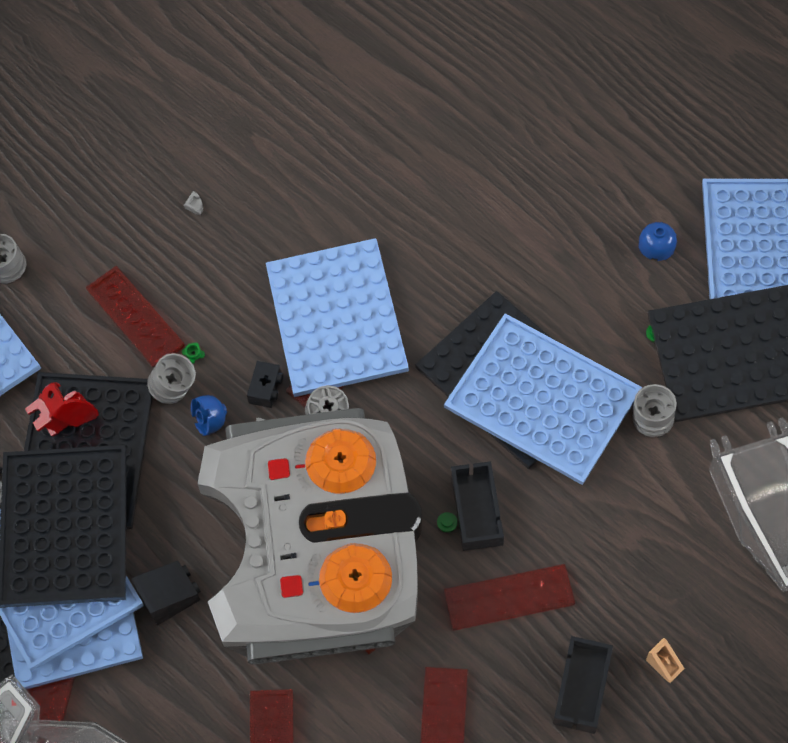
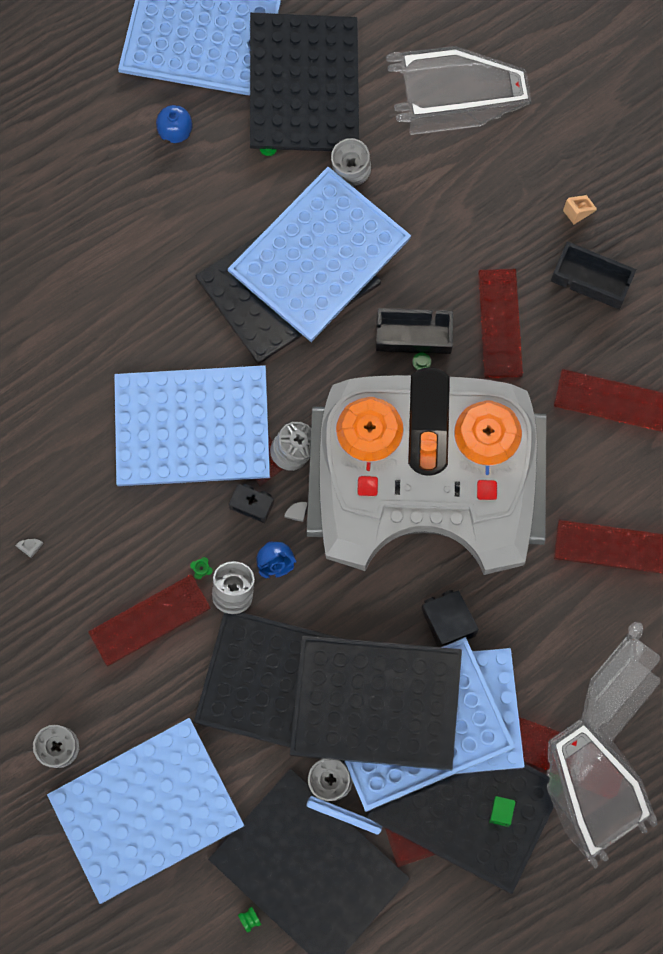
camera: 85 degrees left, 10 degrees up
(60, 411) = (255, 701): red piece -> none

